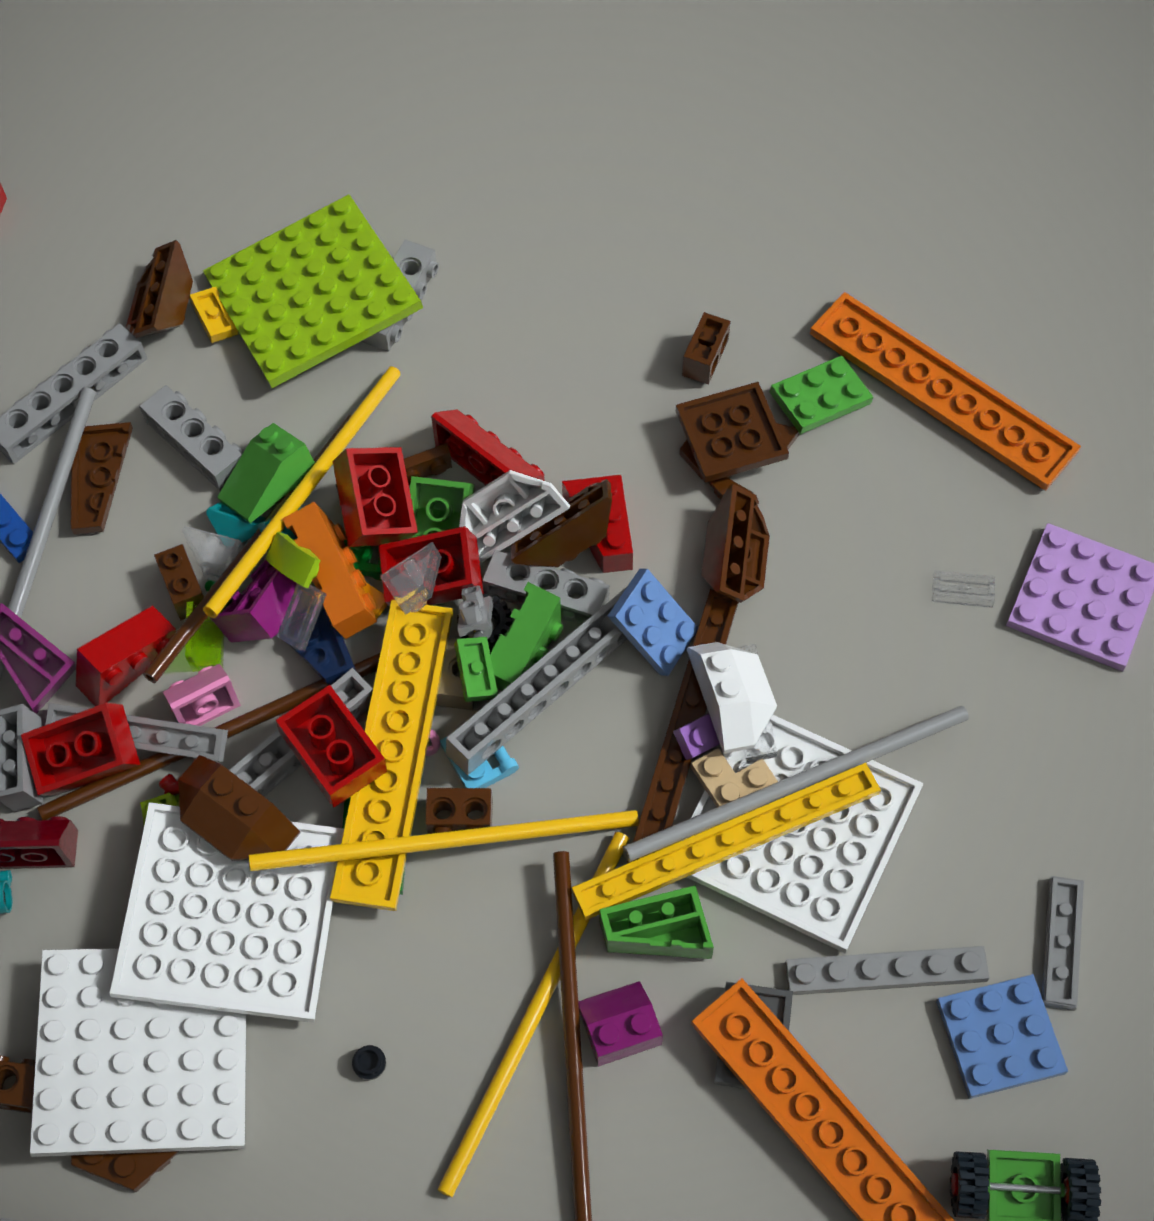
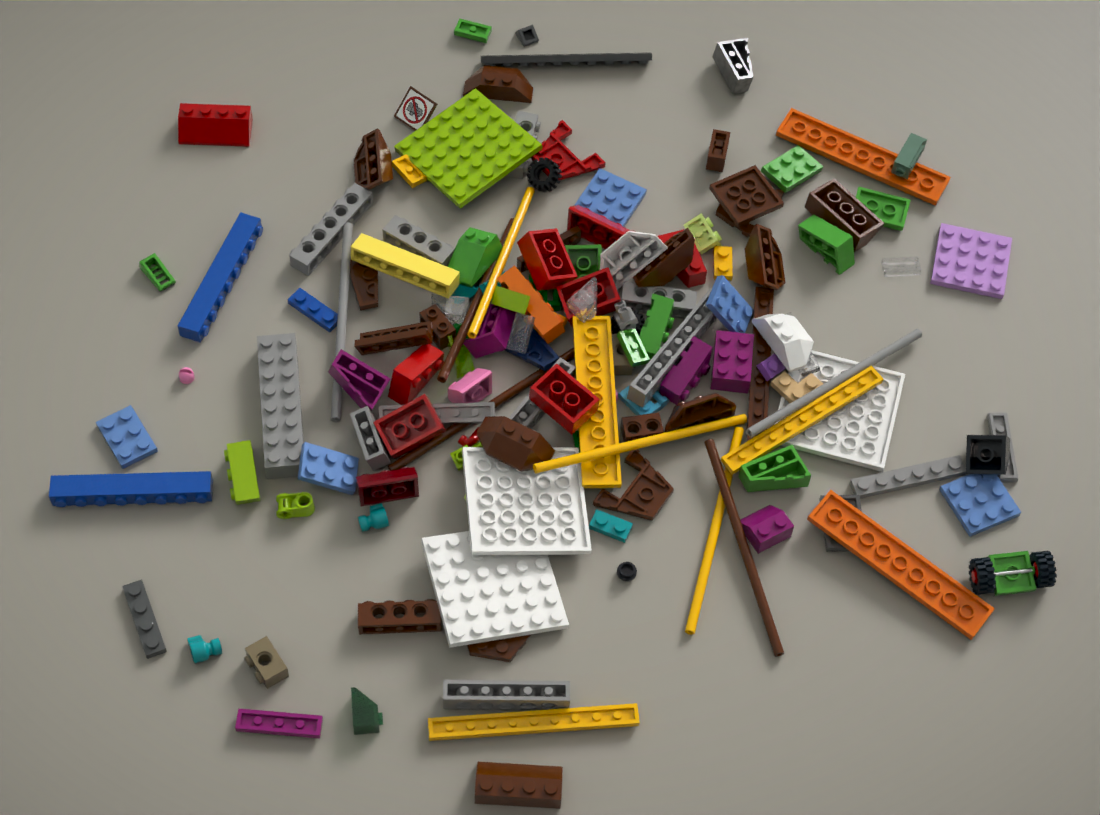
camera: 15 degrees left, 5 degrees down
(107, 597) = (395, 338): none -> reddish brown fence
(154, 472) = (405, 265): none -> light yellow brick
(249, 215) = (415, 109): none -> piece
(365, 974) = (610, 526): none -> teal plate
(376, 100) = (473, 30): none -> bright green plate
(395, 192) = (500, 84): none -> reddish brown wedge
(430, 356) = (535, 172): none -> black tyre
(434, 929) = (643, 496): none -> reddish brown wing
(450, 328) = (563, 157): none -> red wing
(459, 118) = (527, 35): none -> dark grey slope
(518, 403) = (612, 197): none -> medium blue plate
(519, 165) = (574, 59): none -> dark grey plate
(557, 724) = (687, 372): none -> magenta wedge
(558, 797) = (700, 411): none -> reddish brown wedge
(637, 715) = (732, 361): none -> magenta brick
(648, 485) = (704, 235): none -> yellowish green bracket
(669, 539) = (722, 262): none -> yellow plate
(769, 206) = (734, 64): none -> flat silver wedge
(850, 529) = (829, 242): none -> bright green wedge
(885, 486) = (844, 211): none -> reddish brown slope
(951, 483) = (887, 207): none -> bright green plate
(1016, 401) = (909, 156): none -> sand green window
(1029, 958) = (987, 454): none -> black slope

